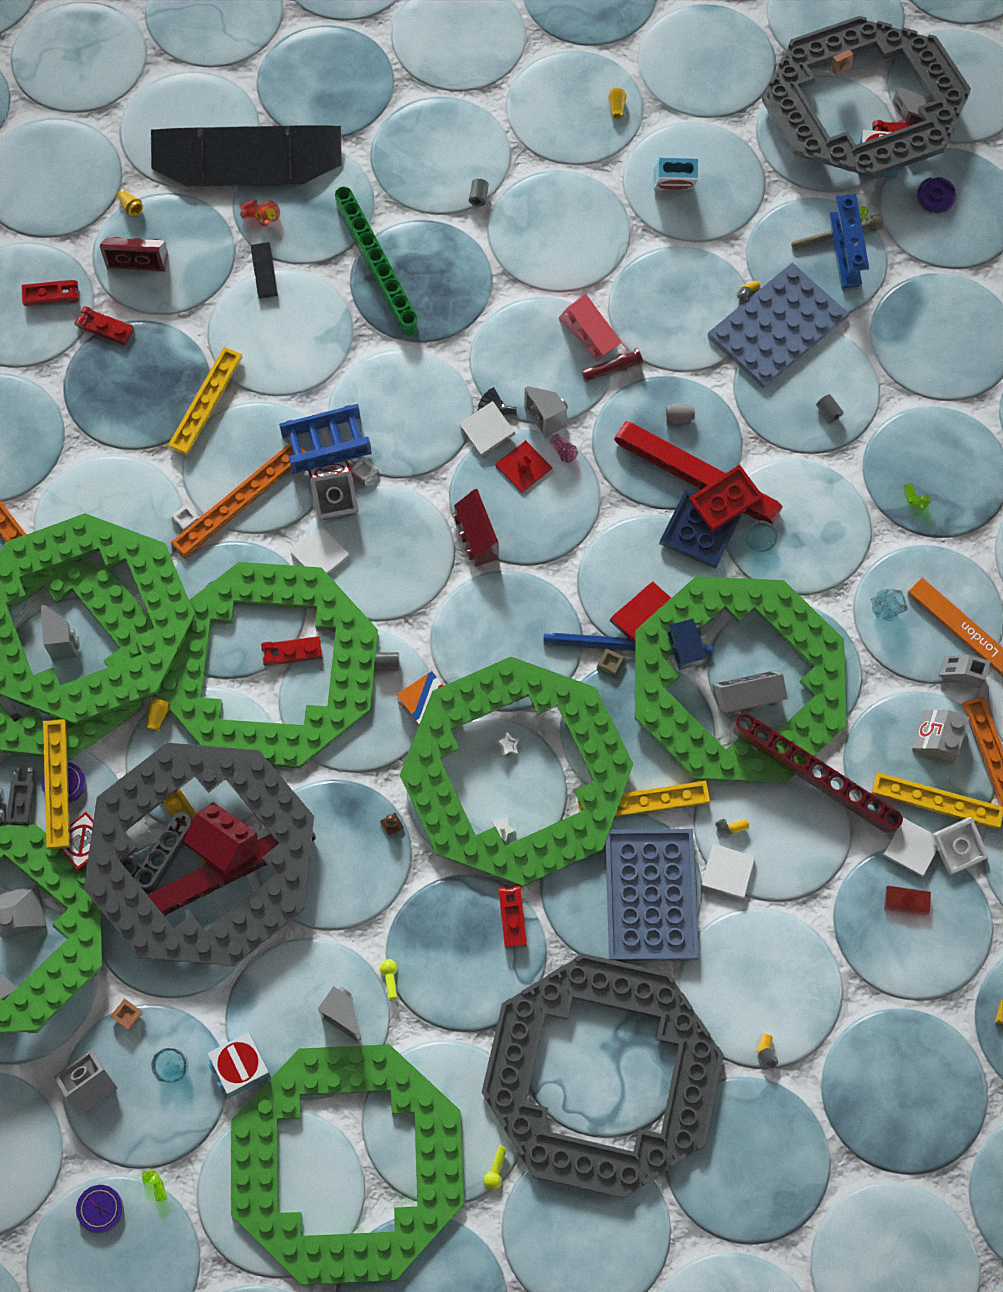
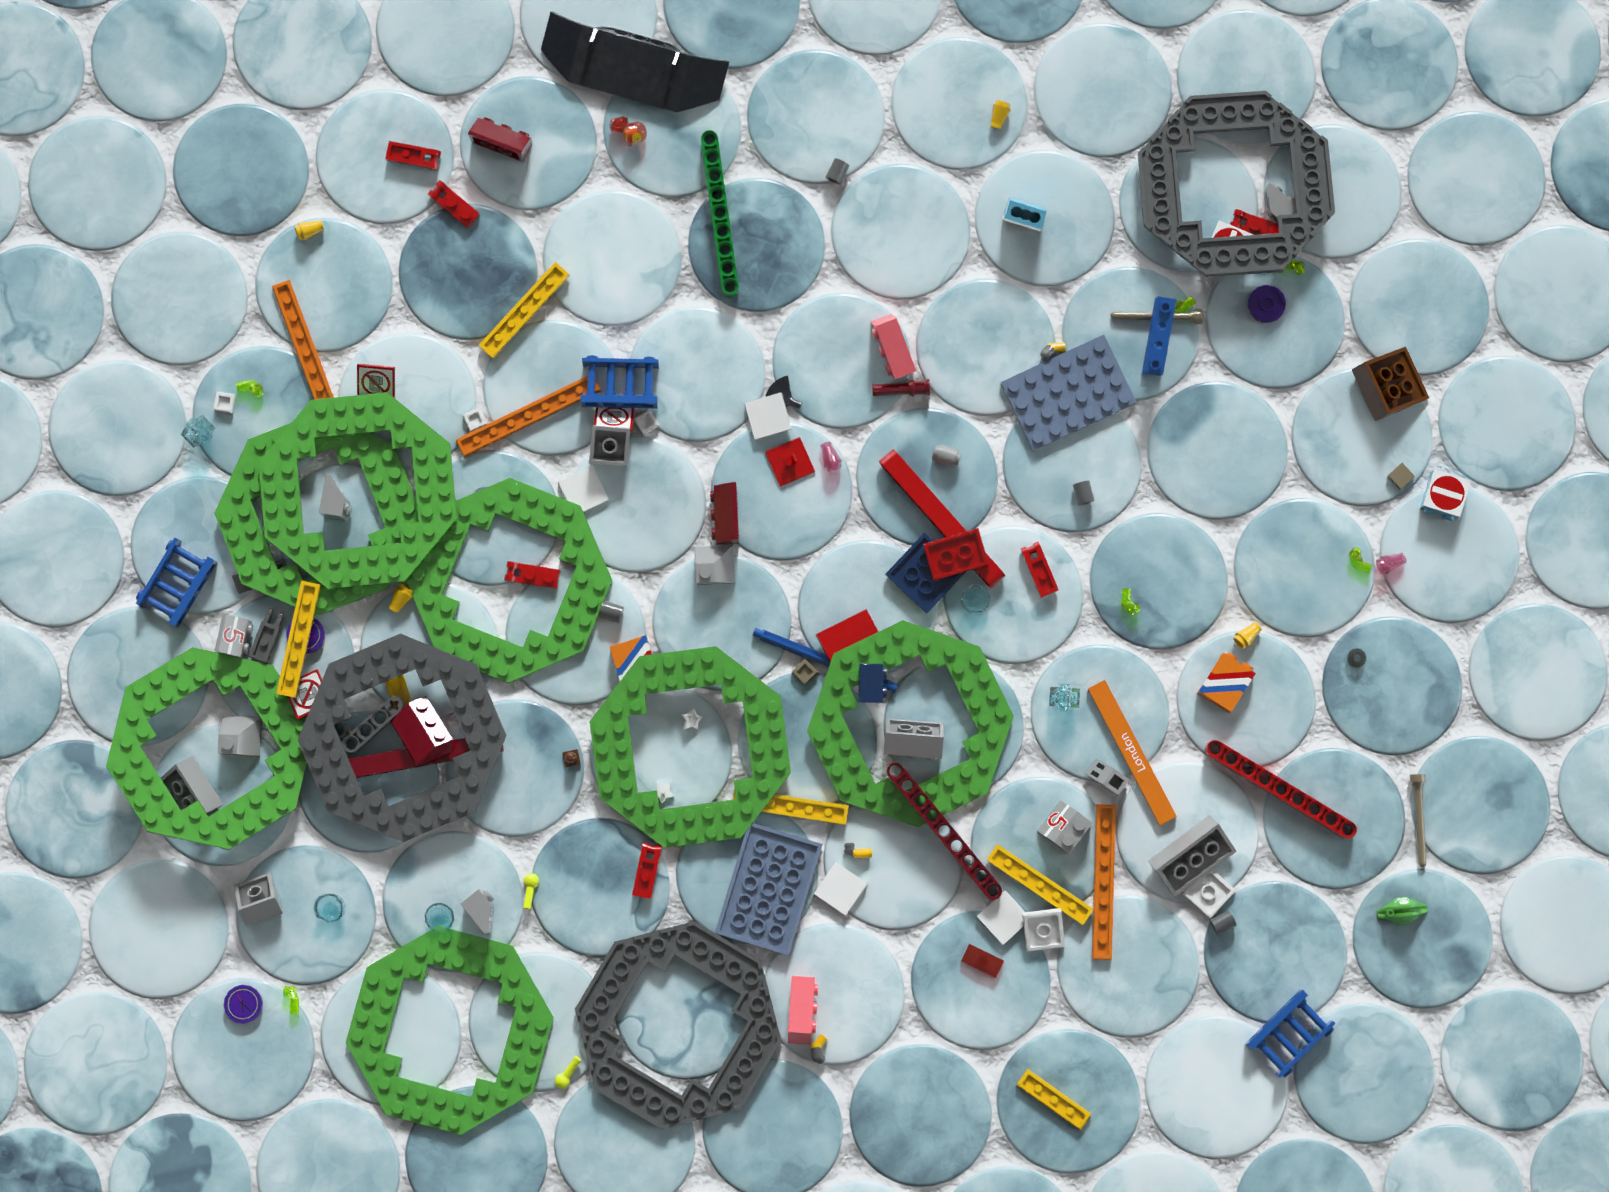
camera: 20 degrees right, 15 degrees up
(68, 503) = (375, 379): none -> piece
(126, 1014) = (306, 853): nougat plate -> none
(130, 203) = (510, 82): yellow cone -> none
(238, 1065) = (384, 924): piece -> none
(264, 270) = (614, 191): black tile -> none
(297, 1035) = (439, 915): none -> clear light blue hair
(480, 586) = (714, 565): none -> light grey slope
(545, 409) = (825, 418): light grey slope -> none
(735, 1013) = (802, 1010): none -> coral wedge
(814, 493) = (1039, 570): none -> red plate
(842, 62) = (1224, 144): nougat plate -> none
(952, 153) = (1296, 265): none -> clear neon green arm

